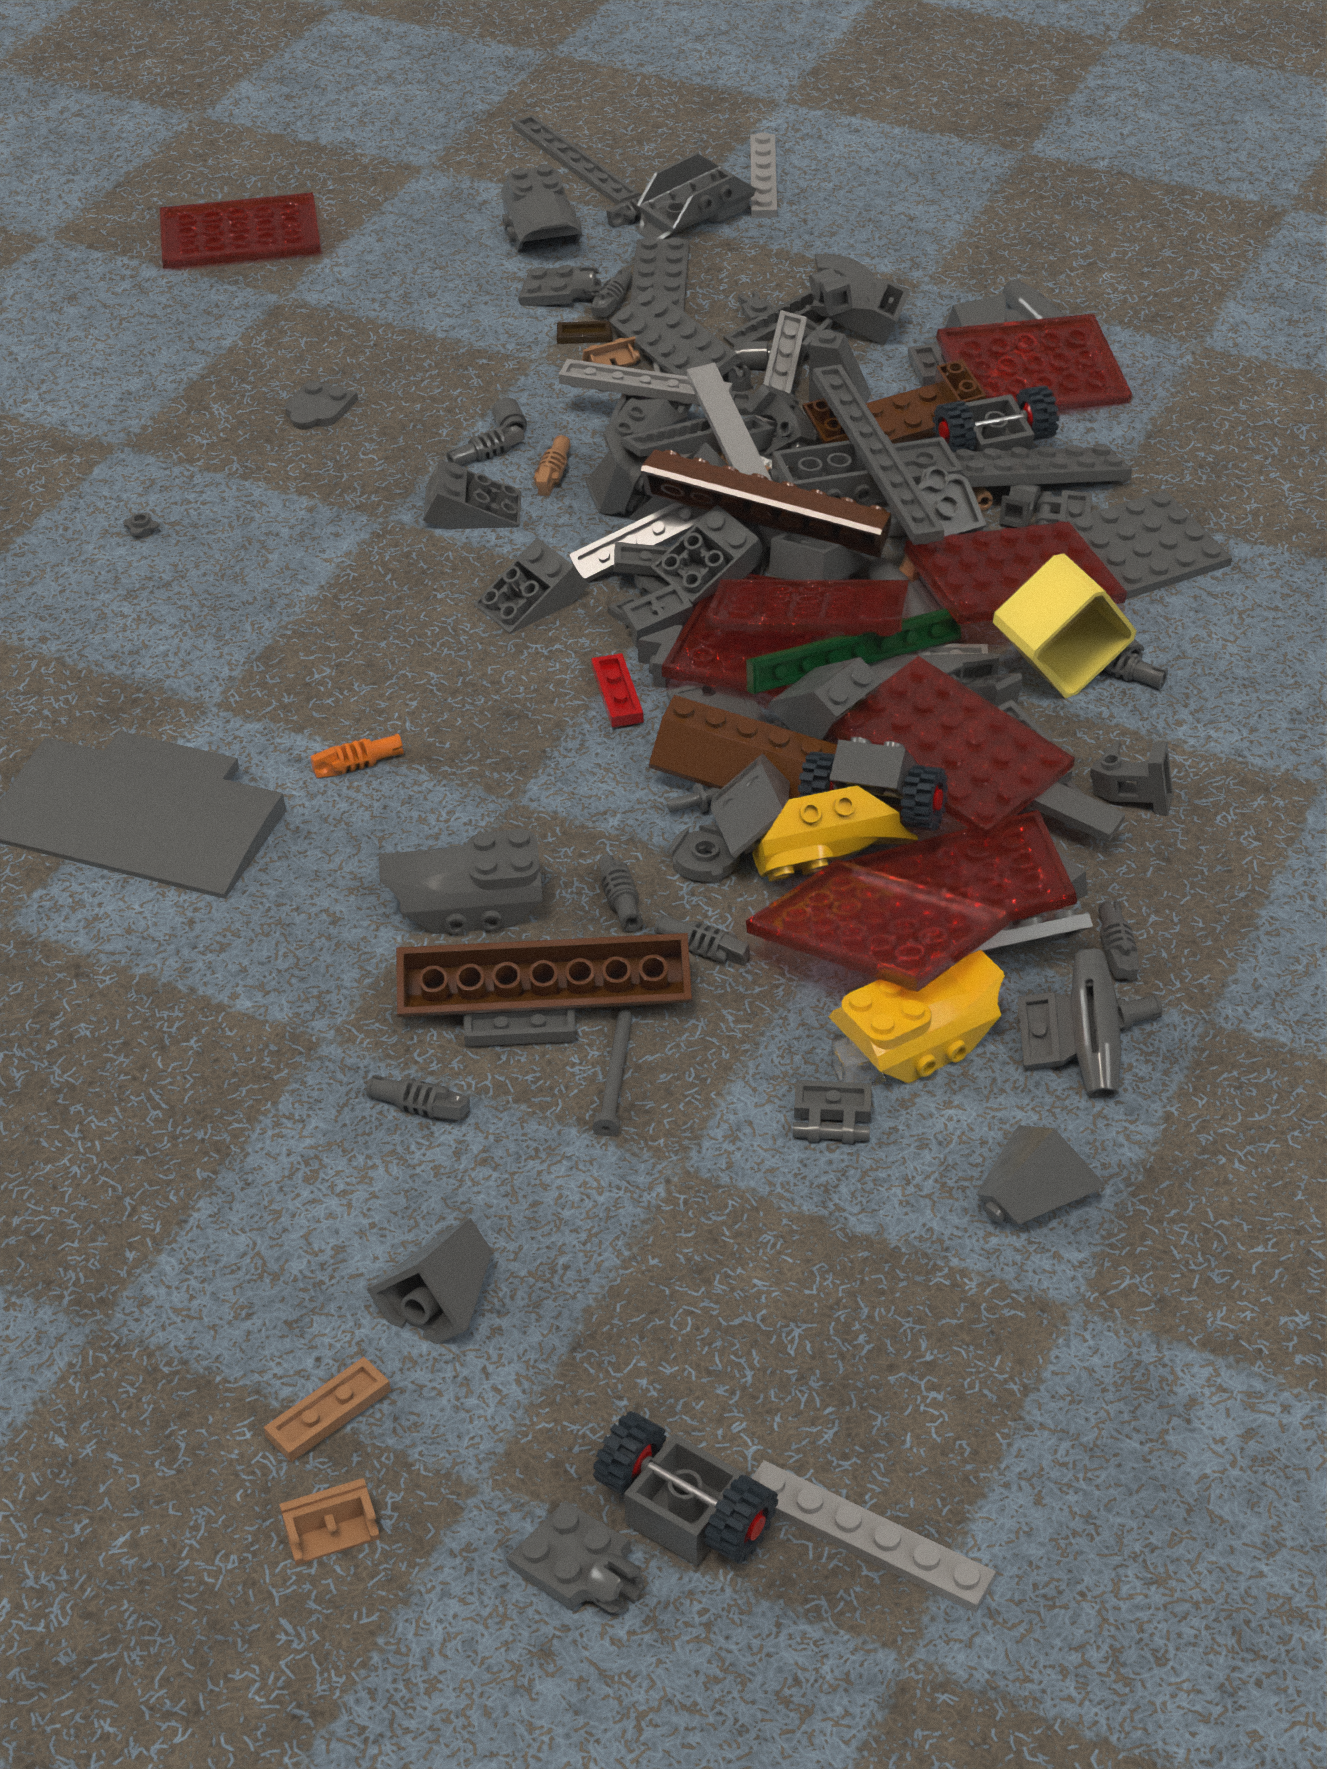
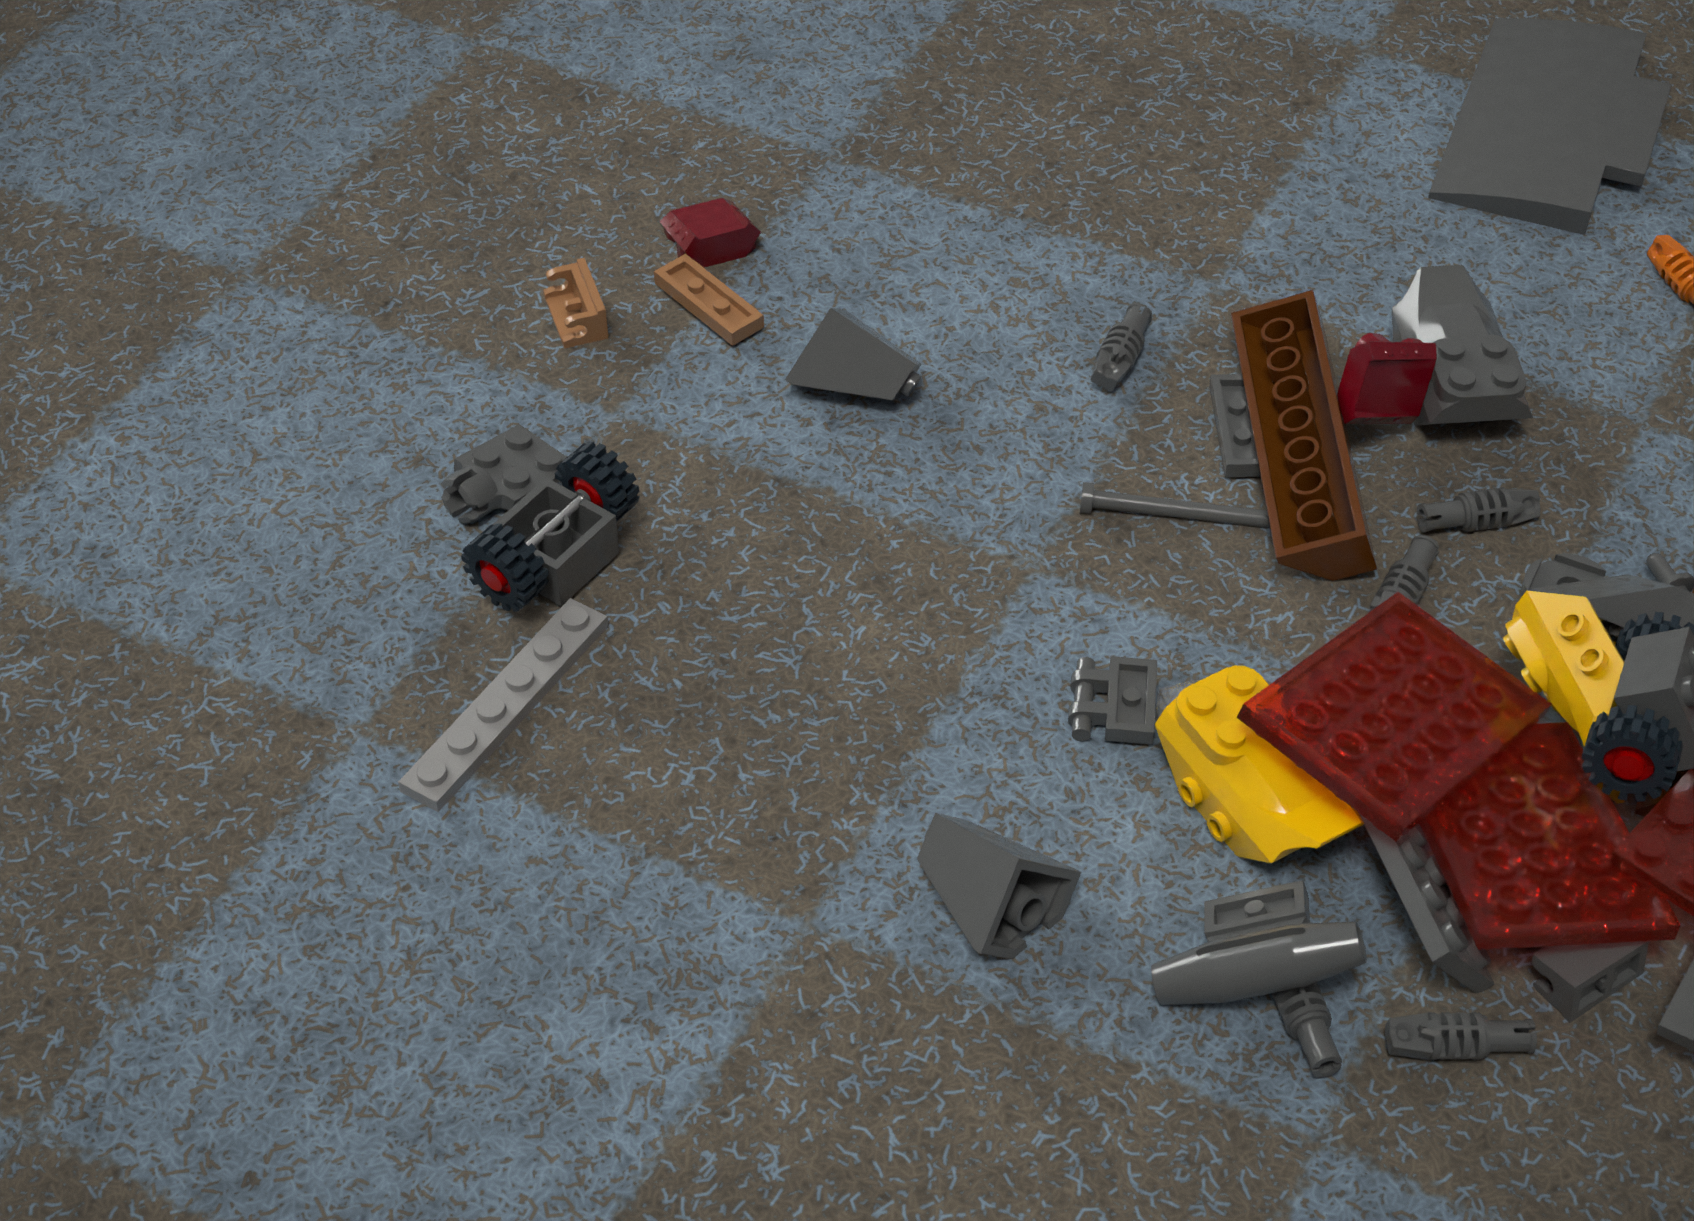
camera: 90 degrees right, 5 degrees up
(217, 1416) = (711, 232): none -> dark red slope
(516, 909) = (1385, 380): none -> dark red slope

